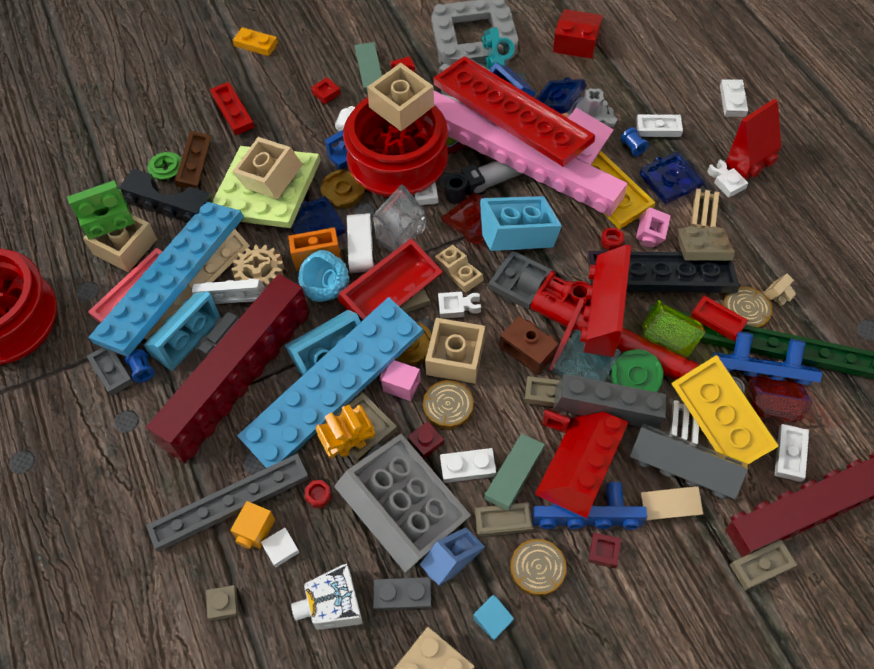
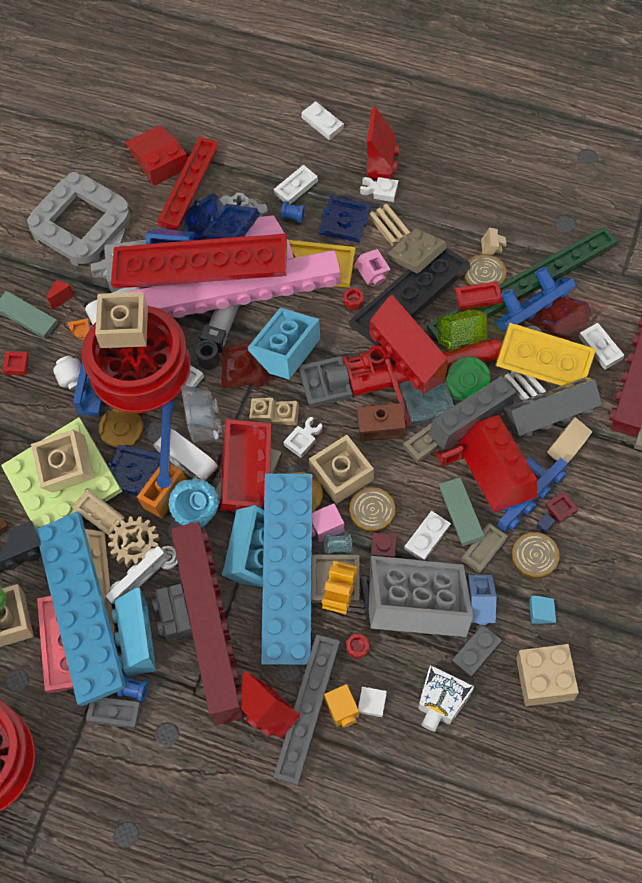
camera: 45 degrees left, 5 degrees up
(196, 465) = (266, 707): none -> red slope
(222, 603) = (376, 770): dark tan plate -> none
(257, 225) = (97, 511): none -> tan plate
(314, 236) = (163, 479): none -> blue bar
(390, 403) = (337, 544): none -> clear light blue bush
(491, 41) = (126, 221): teal plate -> none
(571, 104) = (232, 222): none -> clear blue plate
(574, 62) = (187, 184): none -> red plate
(577, 550) = (545, 523): none -> dark blue piece

